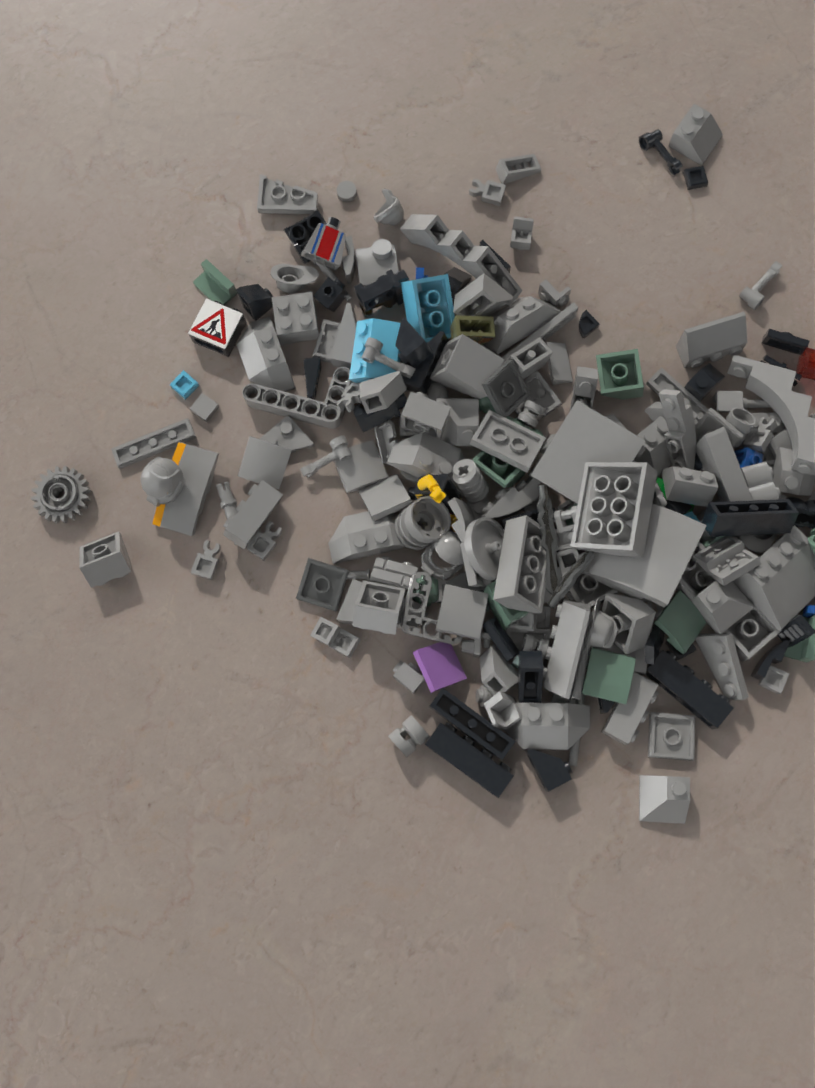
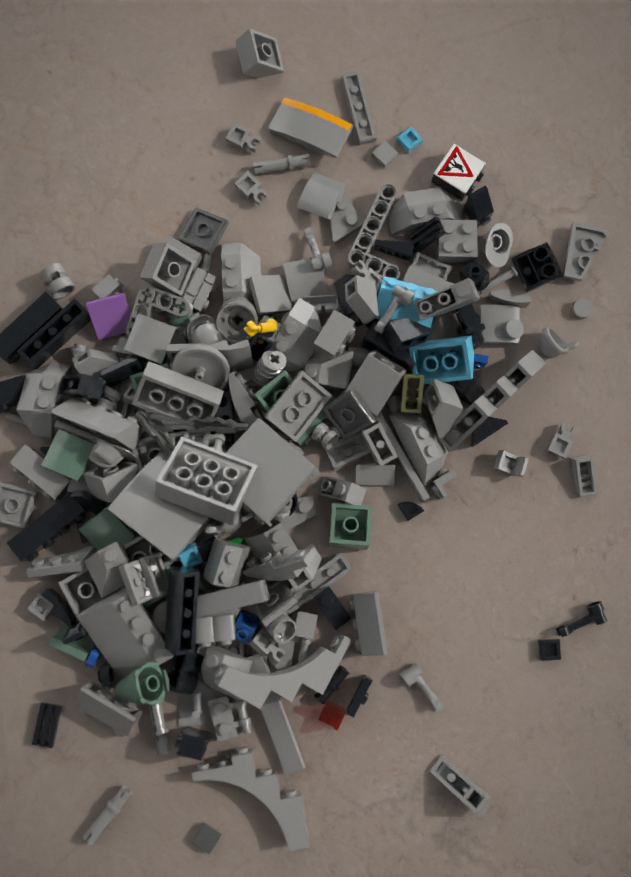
camera: 90 degrees right, 5 degrees up
(49, 489) = (334, 31): light grey gear -> none
(160, 478) = (315, 102): light grey helmet -> none
(215, 284) = (502, 177): sand green panel -> none
(252, 514) = (274, 177): light grey brick -> none
(300, 361) = (424, 232): none -> black tile
(326, 244) = (524, 276): torso -> none
(335, 637) = (157, 233): light grey slope -> none
(370, 305) = (447, 299): none -> light grey slope
(502, 710) = (59, 359): light grey panel -> none
(696, 135) = (595, 659): light grey slope -> none

